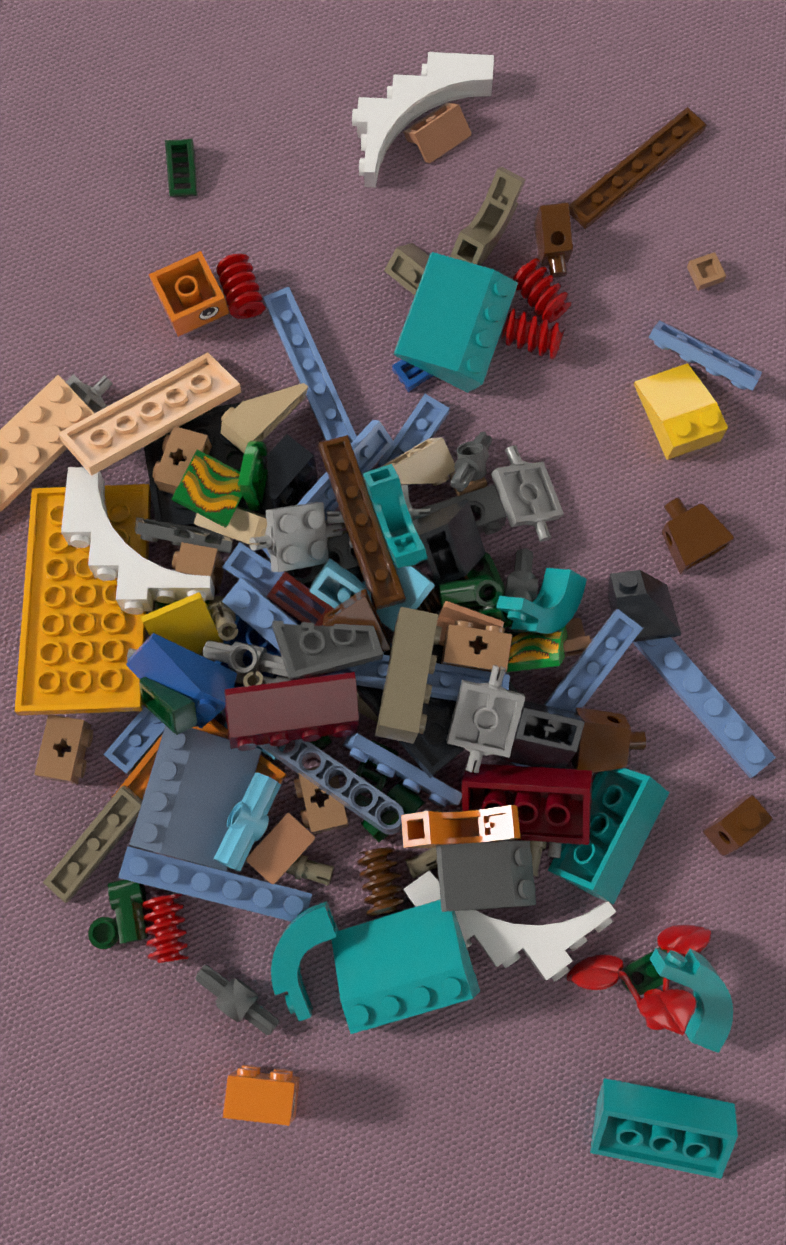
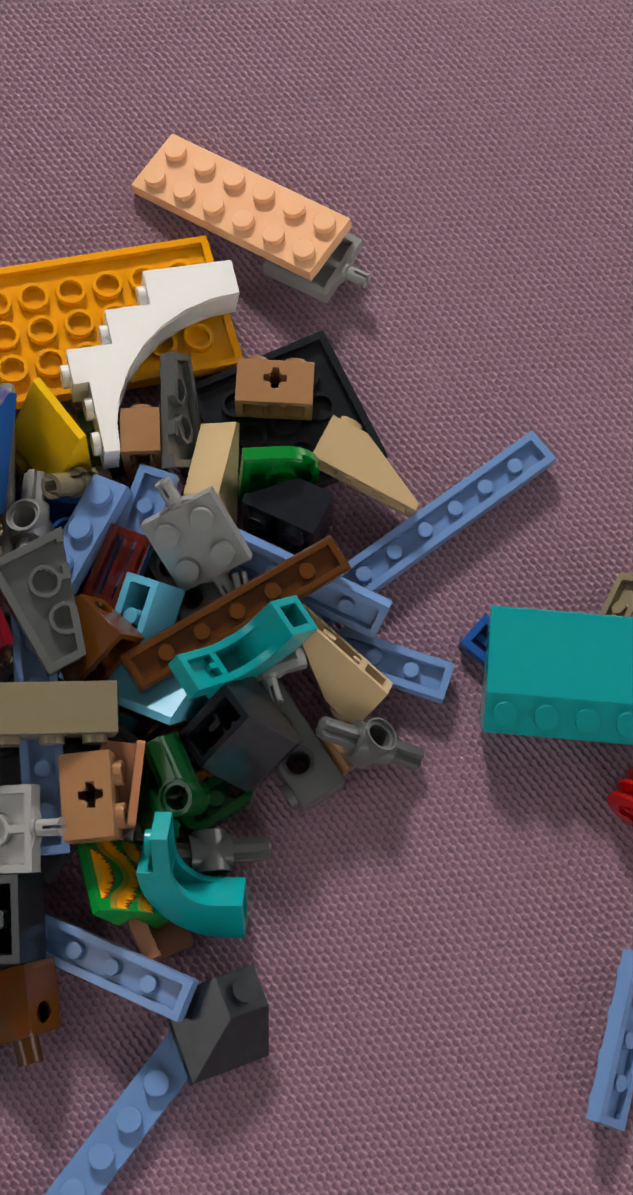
camera: 70 degrees right, 5 degrees down
(149, 413) = (330, 335): light nougat plate -> none
(189, 293) = (507, 341): orange brick -> none
(209, 489) = (239, 418): slope -> none
(240, 286) = (535, 397): red piece -> none
(527, 493) = (345, 829): light grey plate -> none
(533, 334) = (579, 787): red piece -> none
(681, 411) = (531, 1019): yellow slope -> none
(693, 534) = (346, 1075): reddish brown torso -> none

